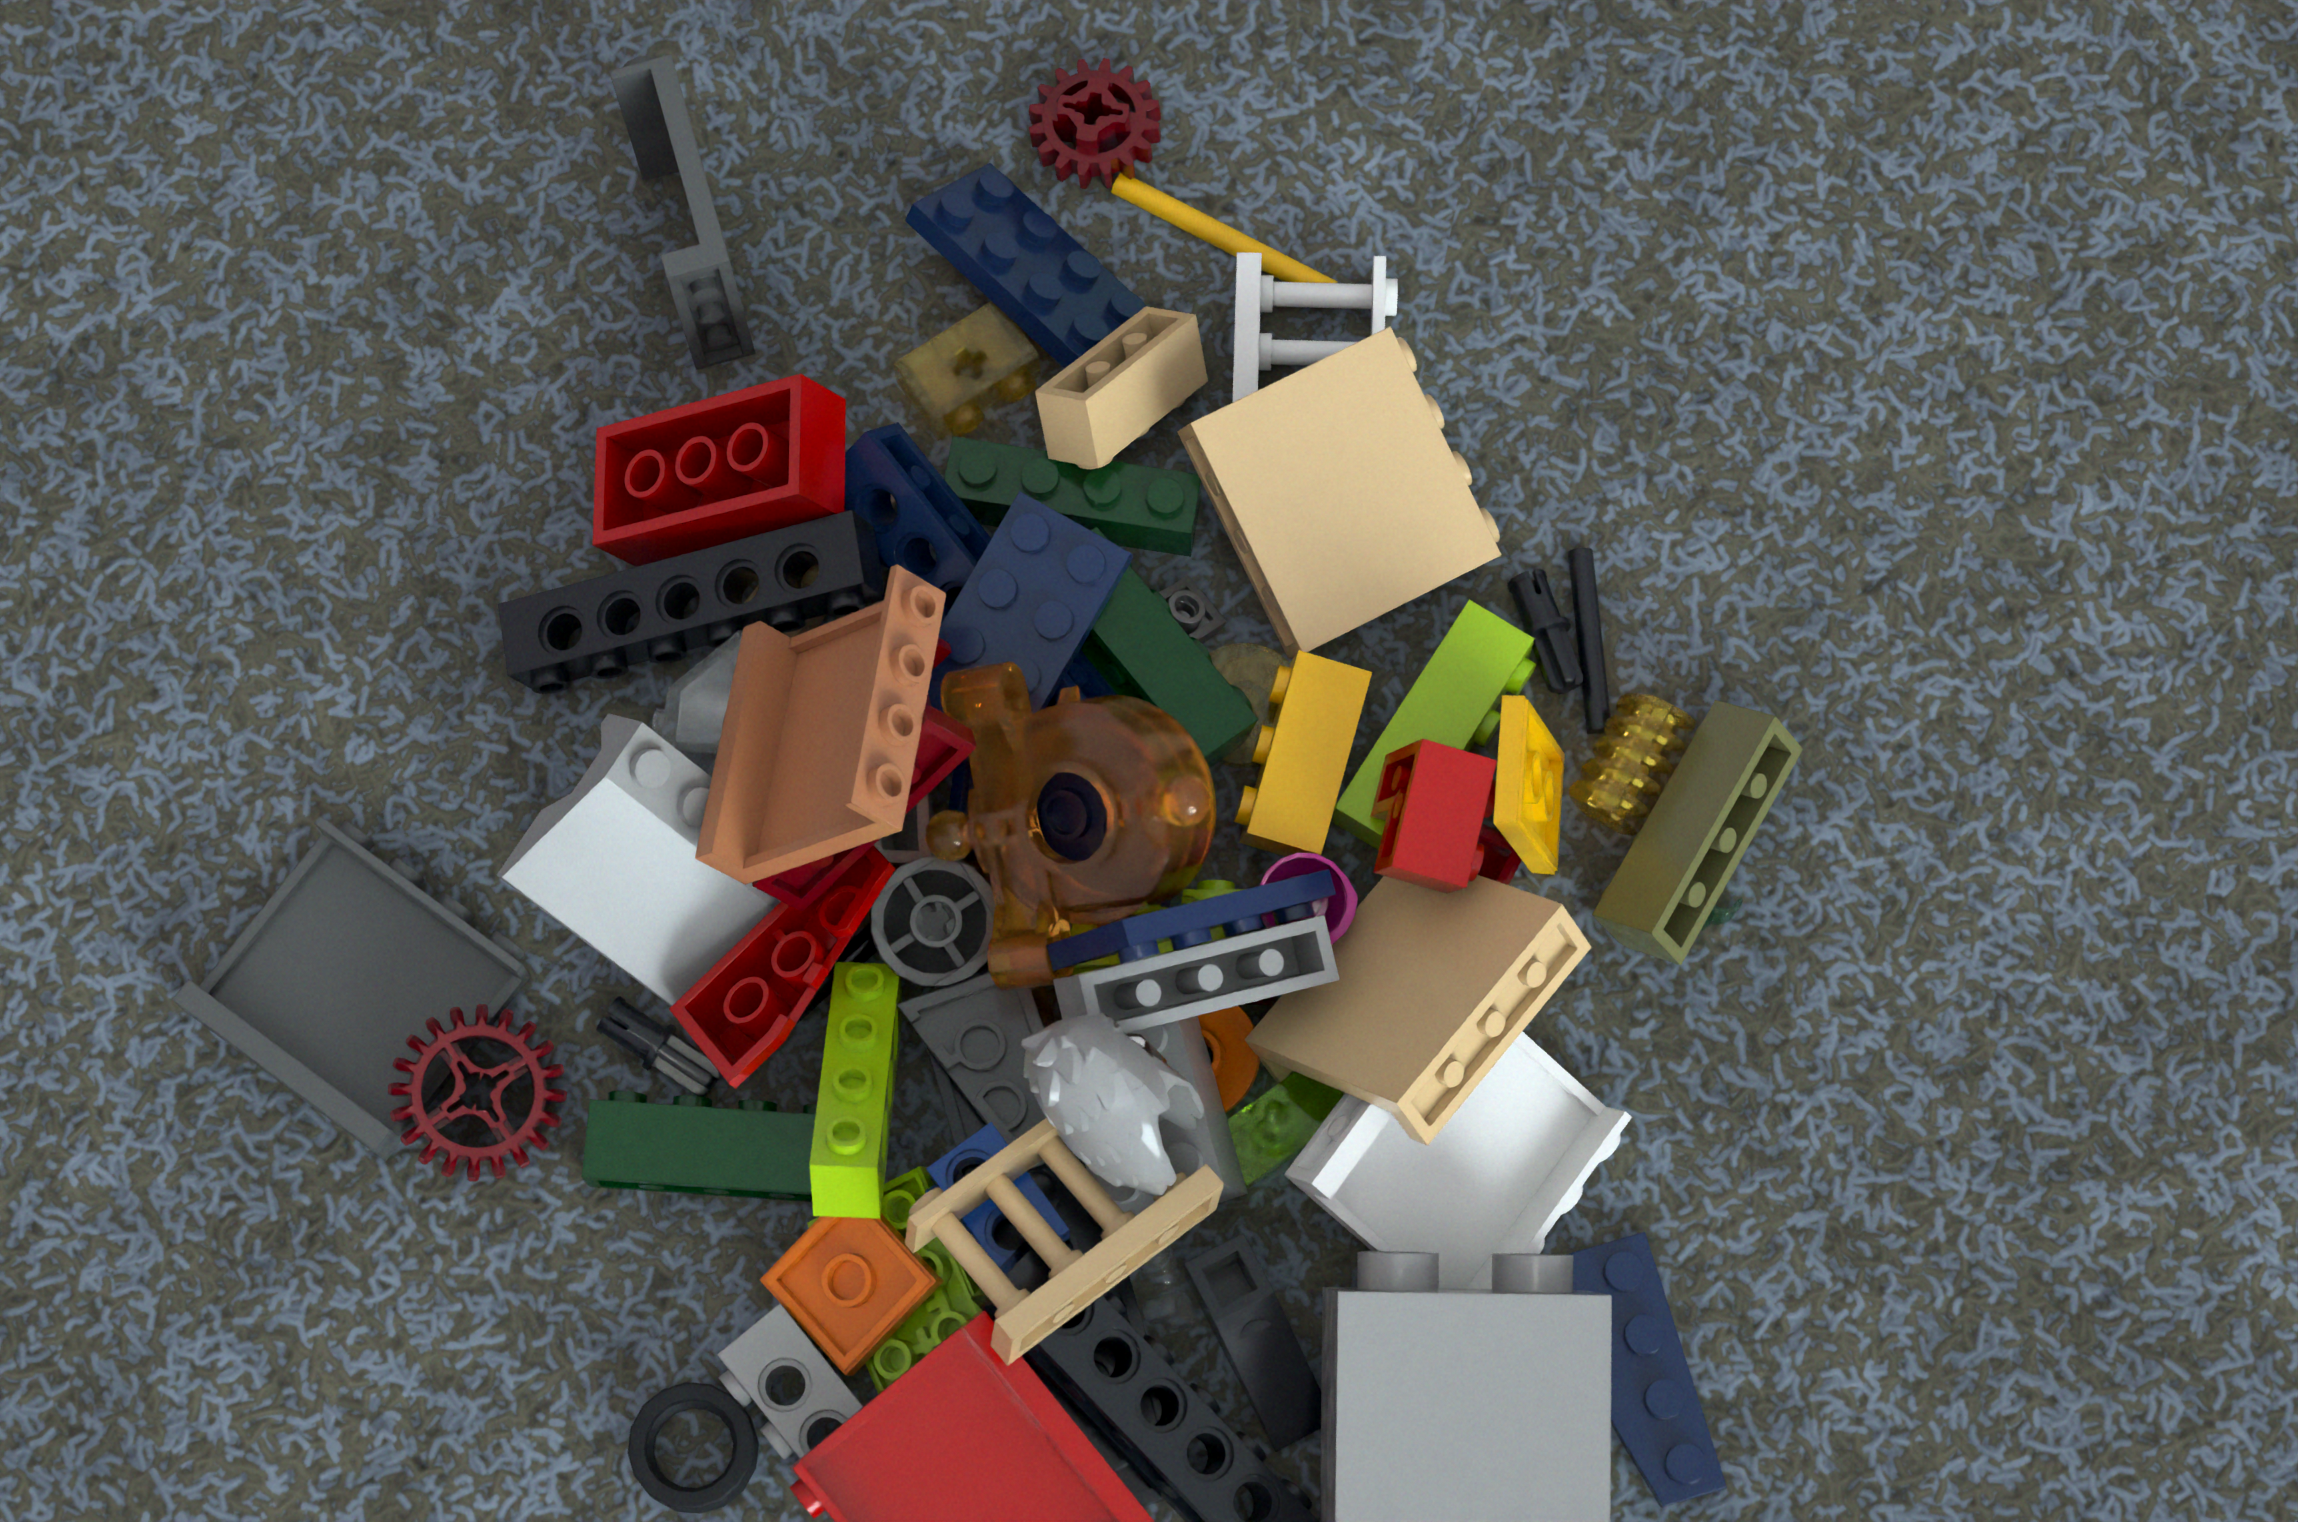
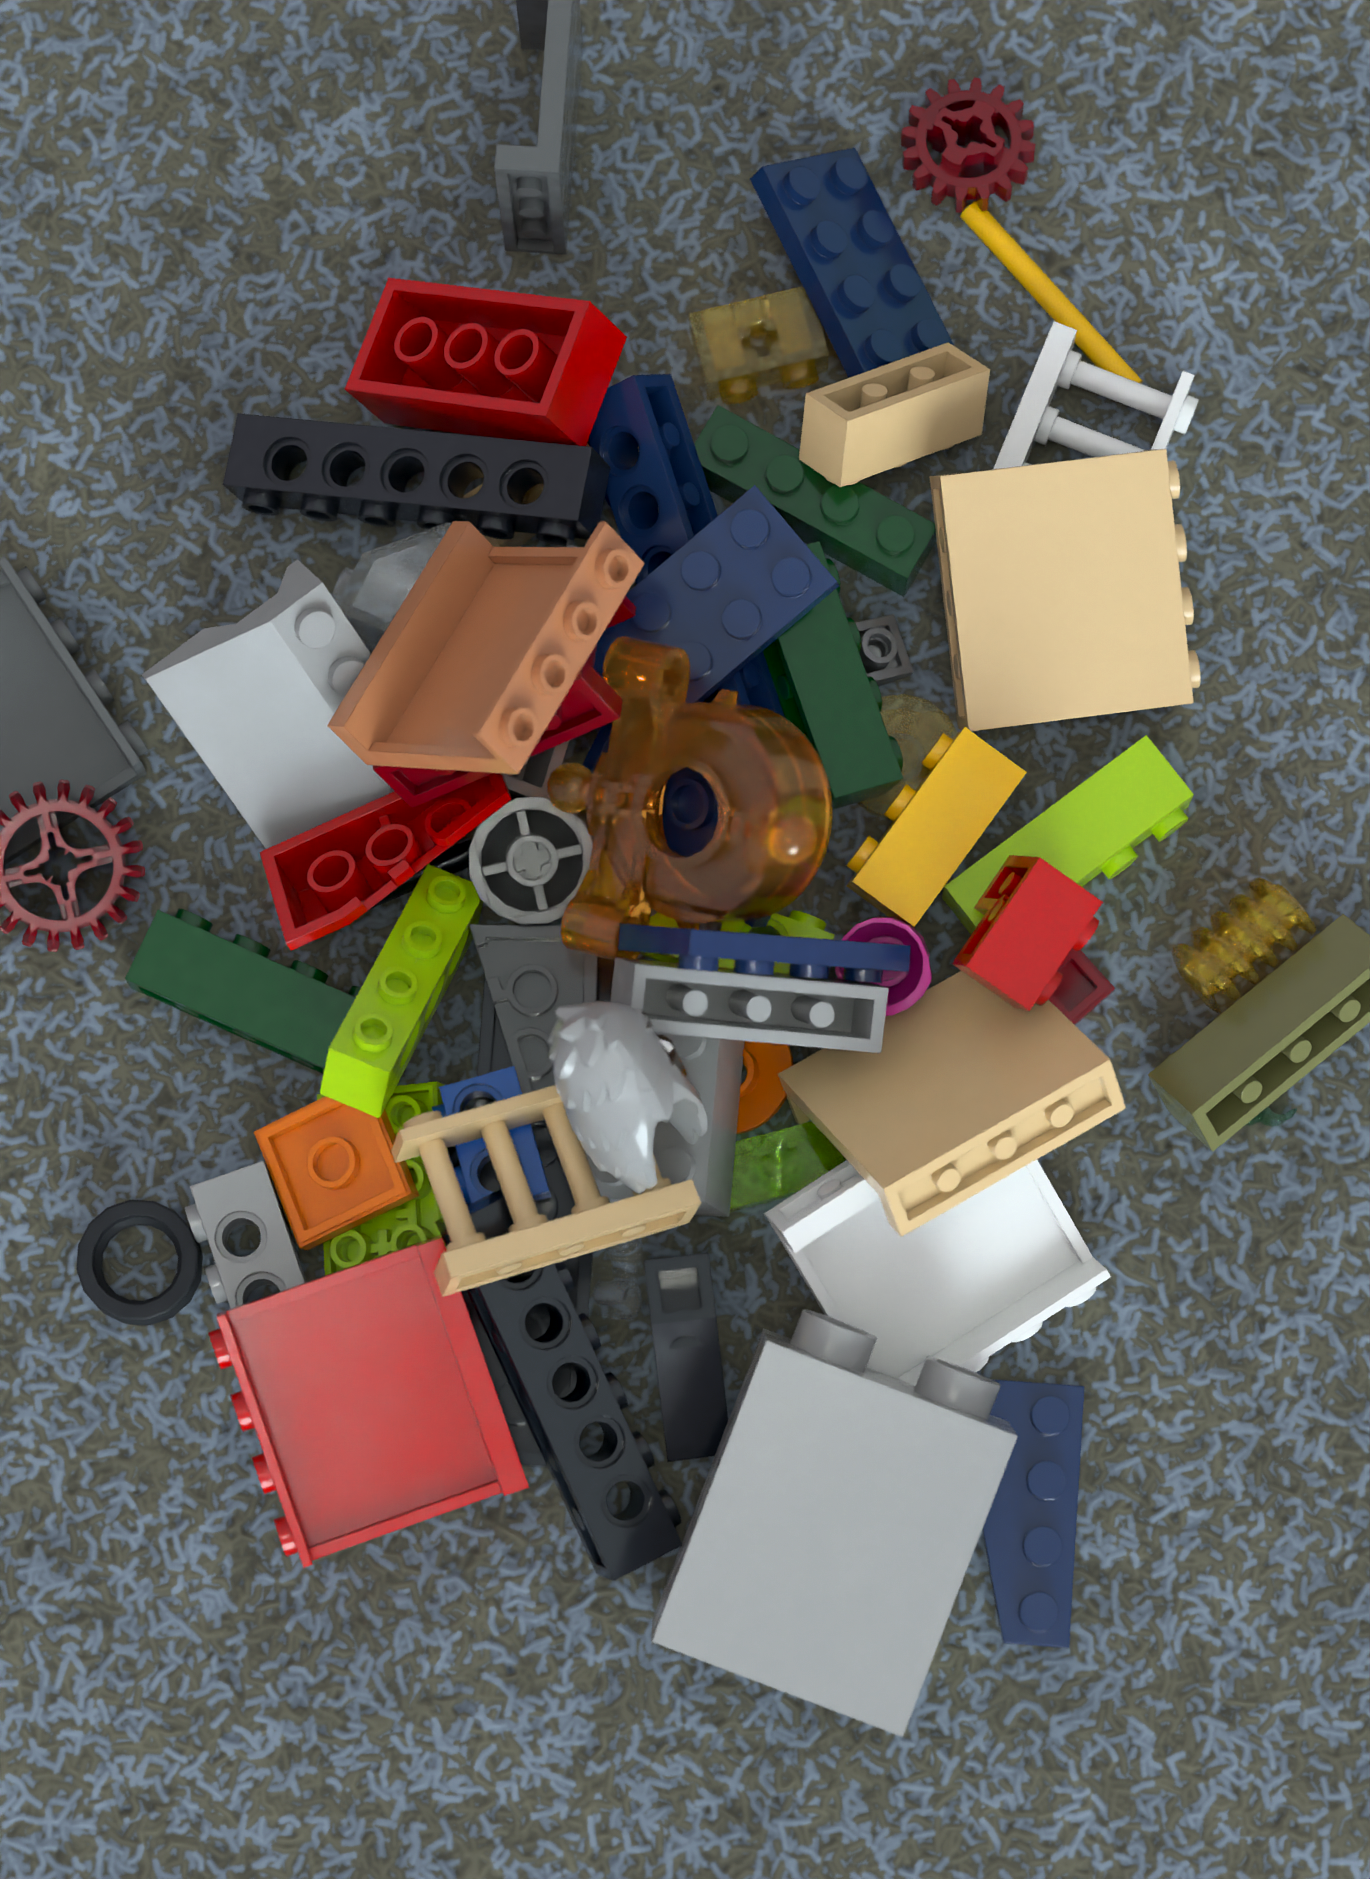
camera: 20 degrees right, 5 degrees up
(659, 1047) = (238, 882): black axle -> none
(1529, 785) = (1131, 933): yellow tile -> none
(1549, 629) = (1211, 790): black axle -> none
(1589, 639) = (1249, 811): black bar -> none

